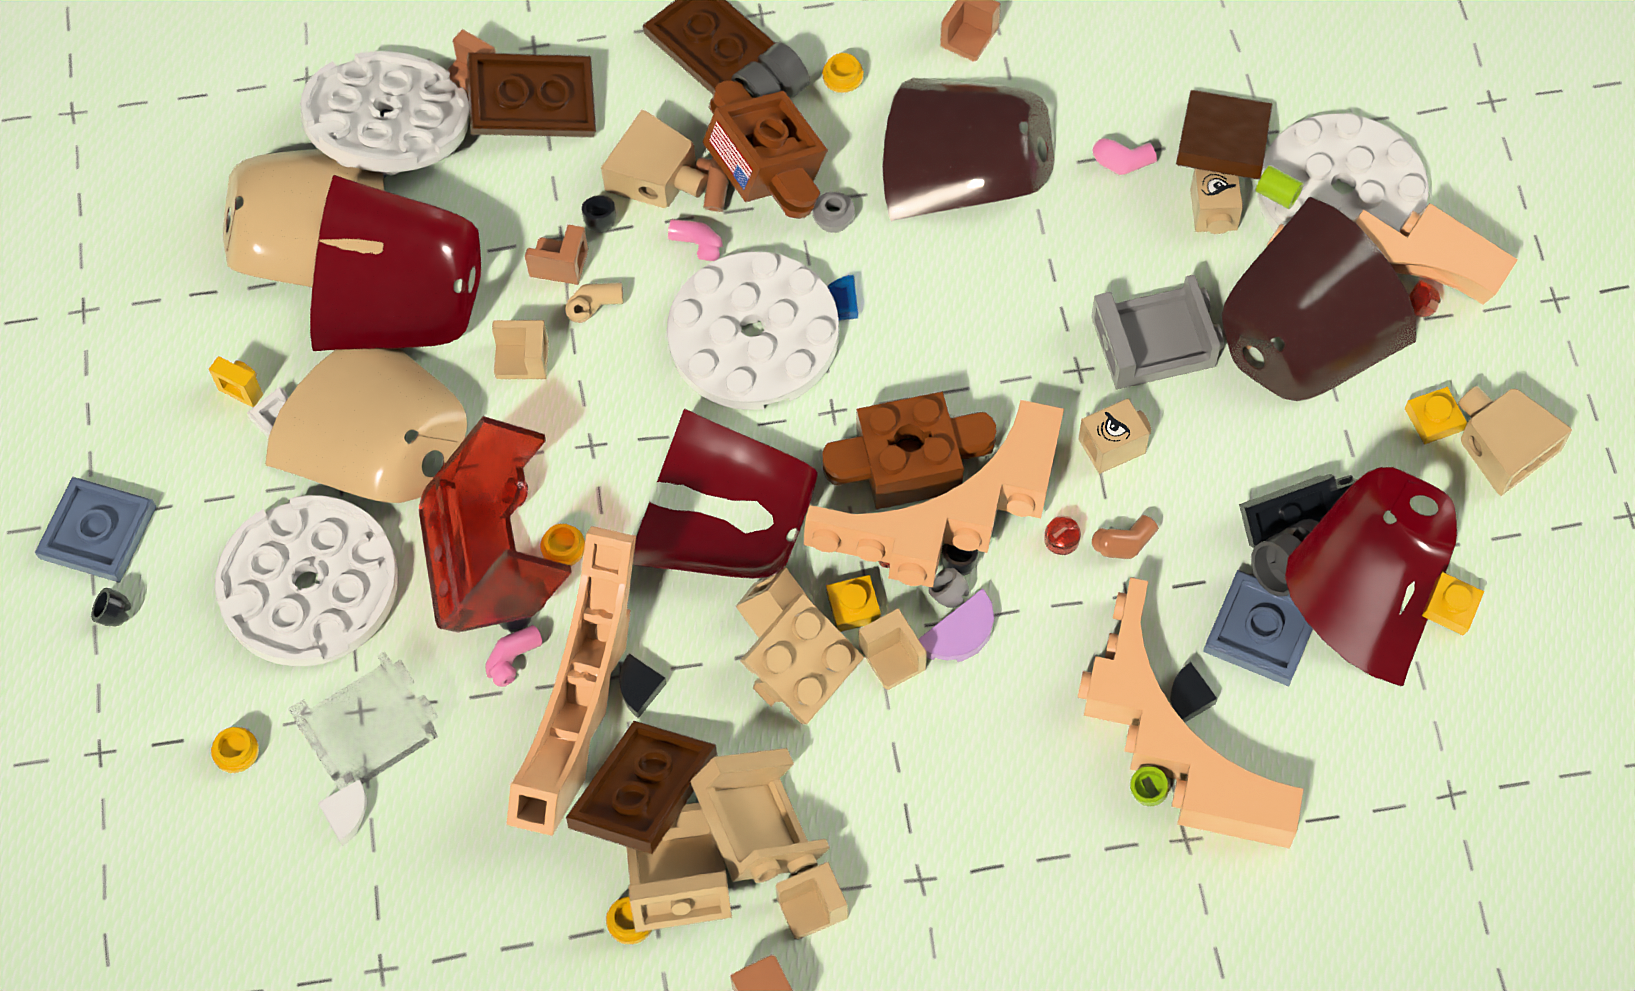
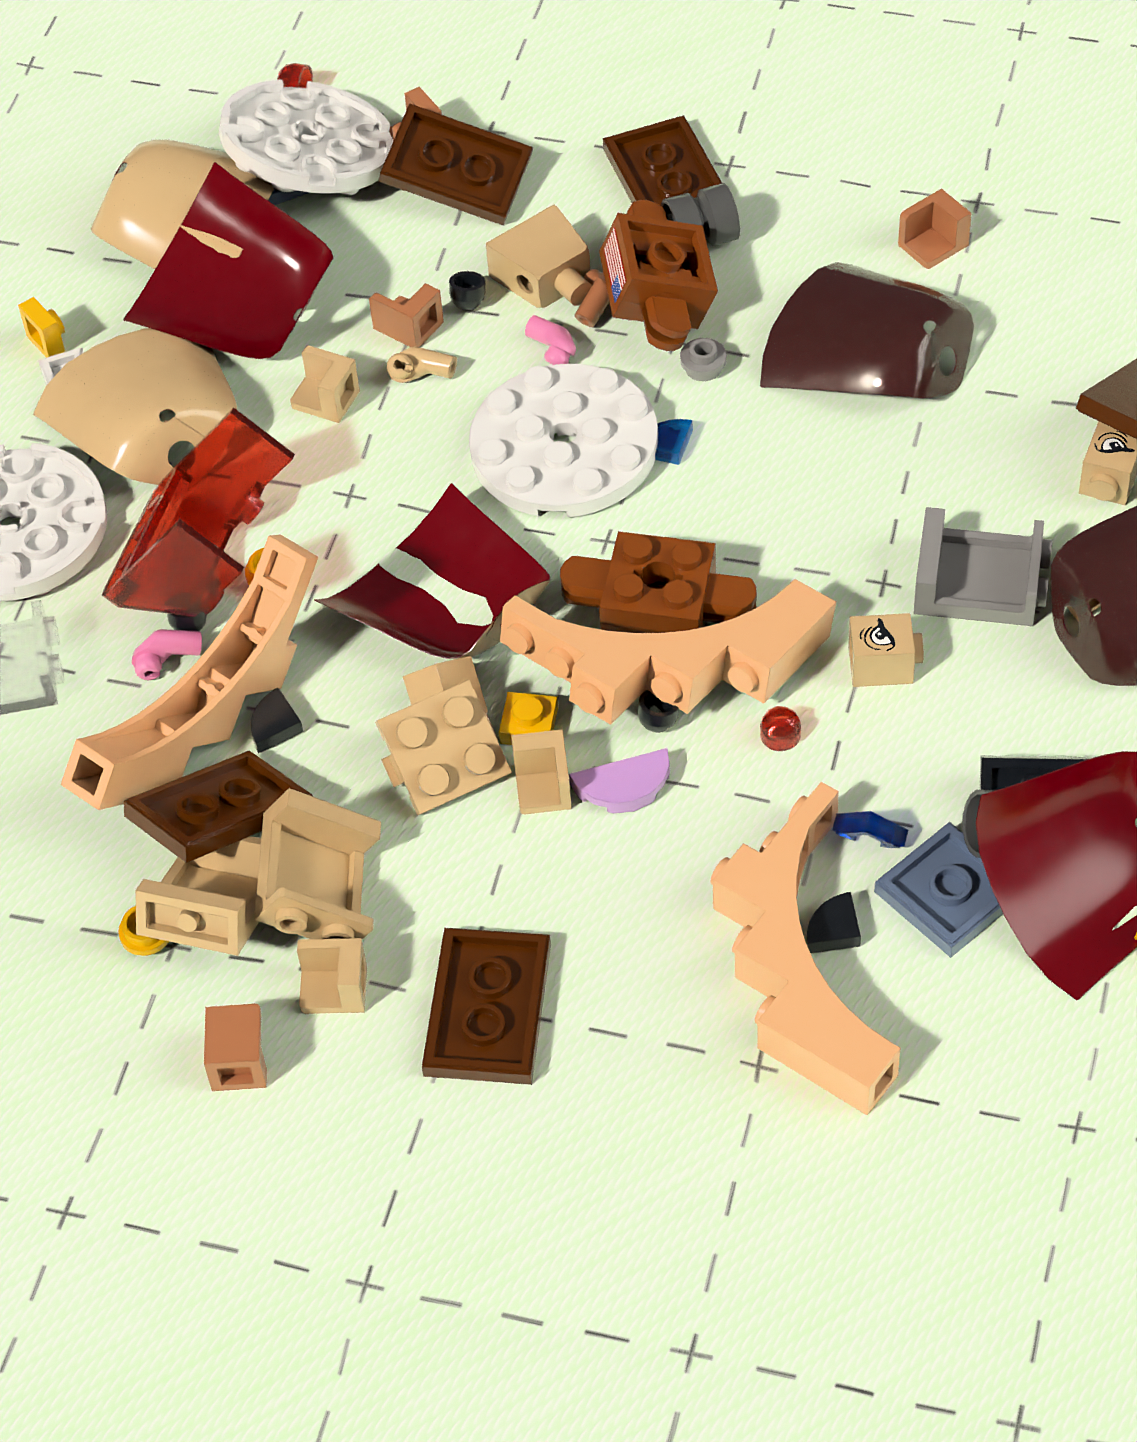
camera: 25 degrees right, 10 degrees down
(335, 50) = (295, 75): none -> clear red hinge
(842, 73) = (781, 236): yellow plate -> none
(947, 874) = (487, 1006): none -> reddish brown tile
(949, 588) = (632, 736): light grey hinge -> none
(1121, 159) = (1032, 399): bright pink arm -> none
(1124, 543) = (842, 756): nougat arm -> none
(1141, 793) = (730, 994): lime hinge -> none
(1178, 599) = (870, 824): none -> clear blue tile

